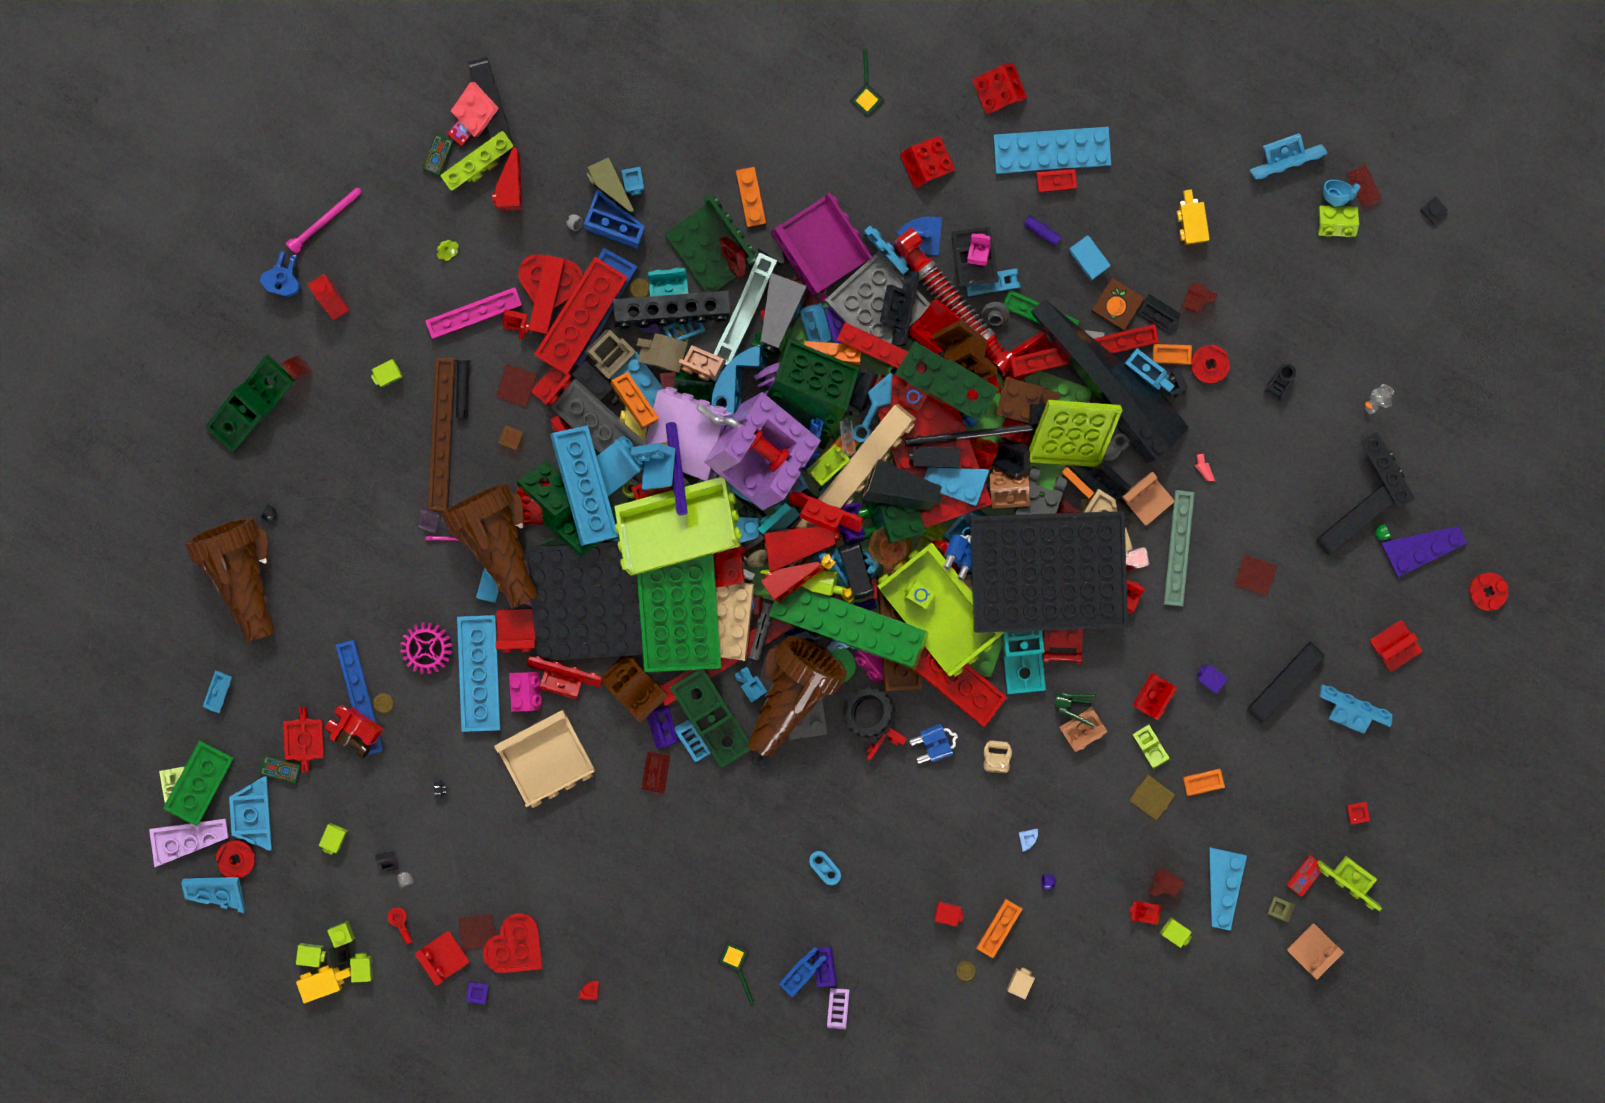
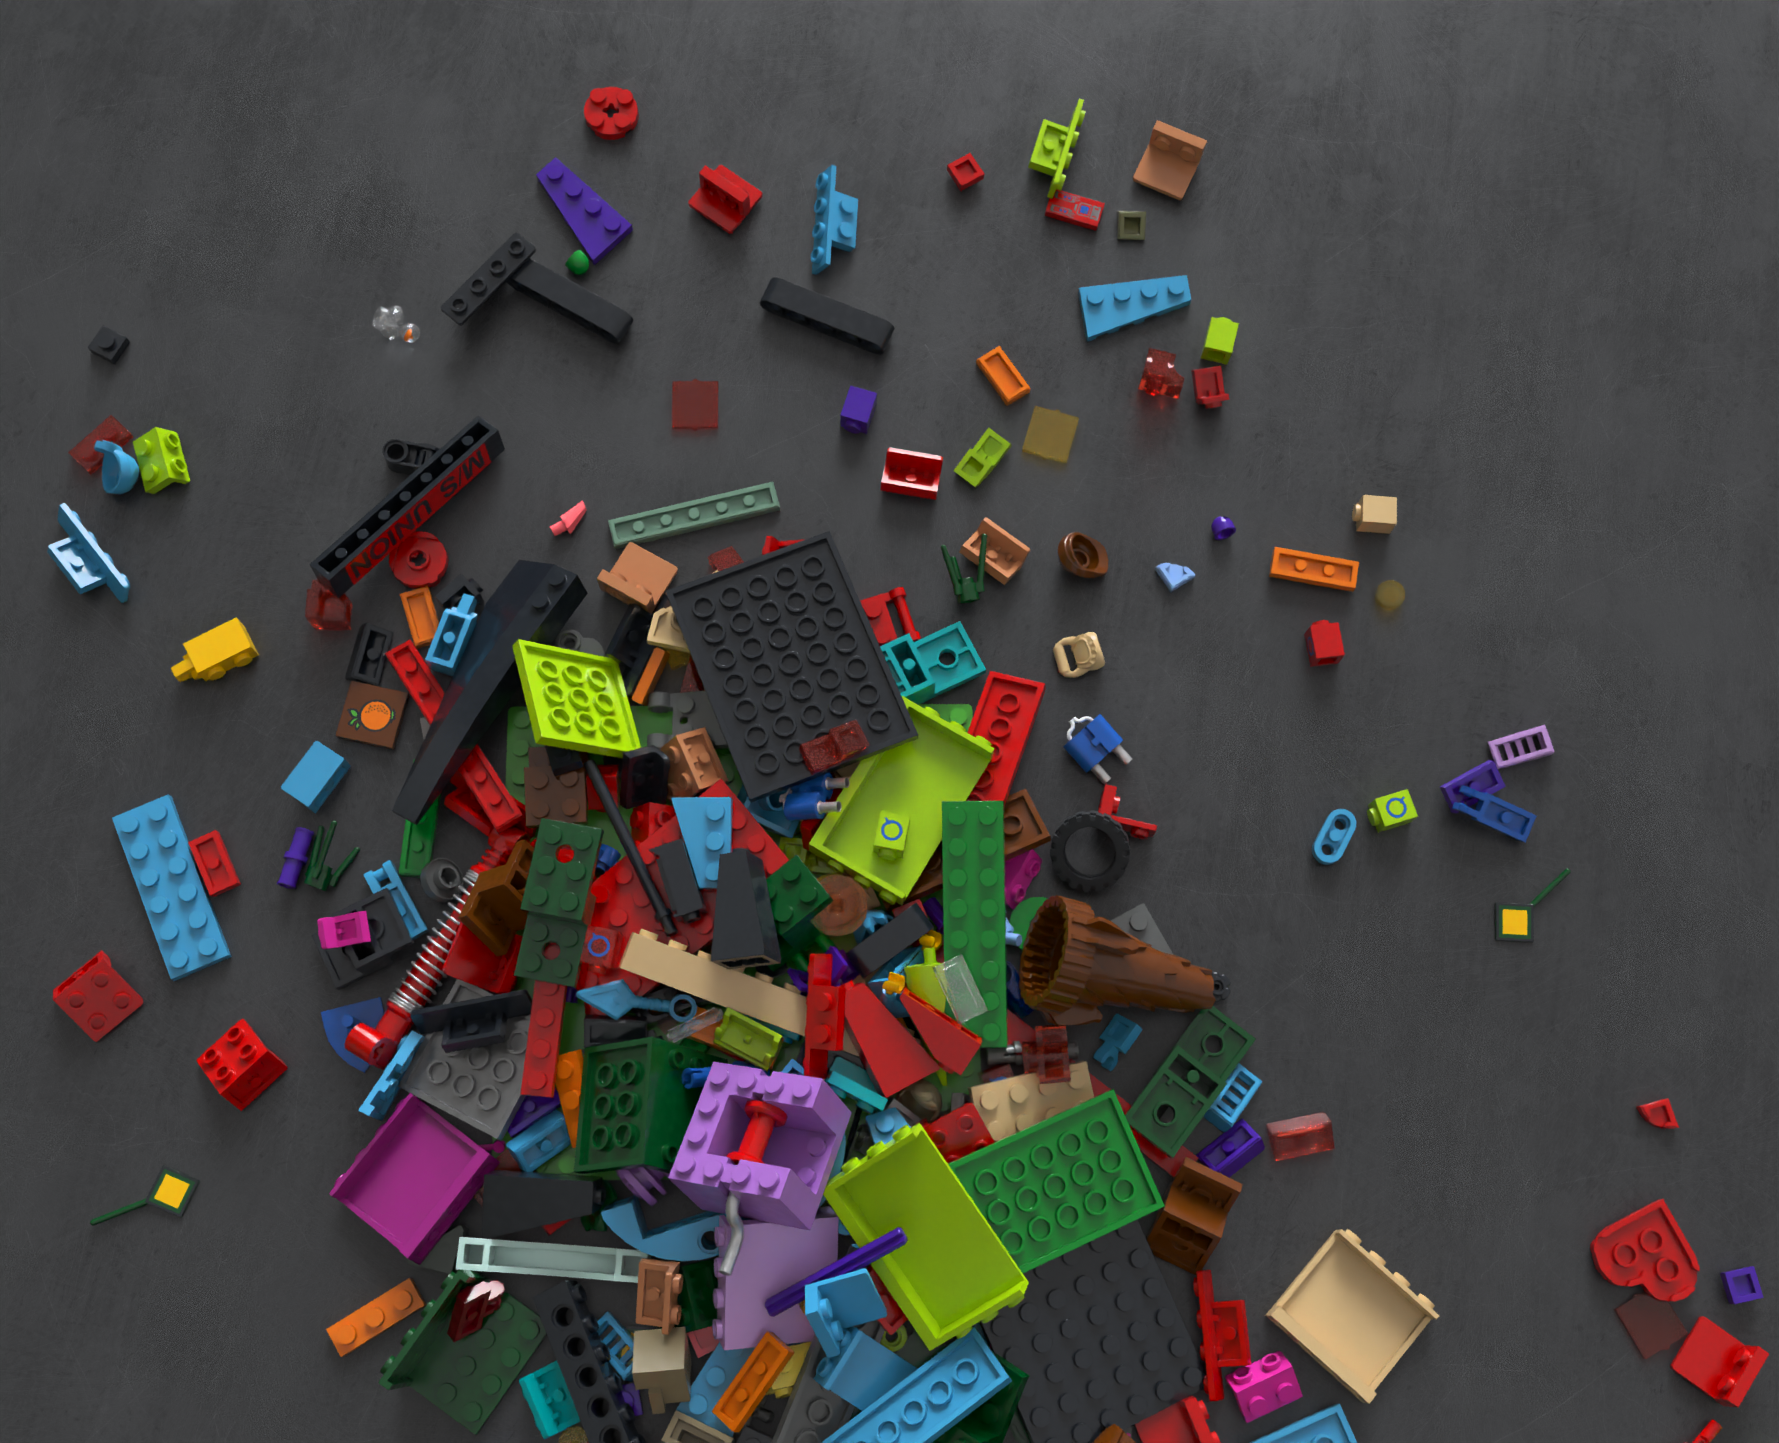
camera: 115 degrees left, 15 degrees down
(755, 638) = (1048, 1055): none -> clear red brick
(811, 600) = (960, 989): none -> clear tile
(827, 909) = (1391, 811): none -> lime brick
(984, 578) = (835, 747): none -> clear red slope
(1026, 242) = (318, 874): none -> dark green plant
(1060, 784) = (1082, 556): none -> reddish brown hat
(1244, 369) = (407, 507): none -> black brick

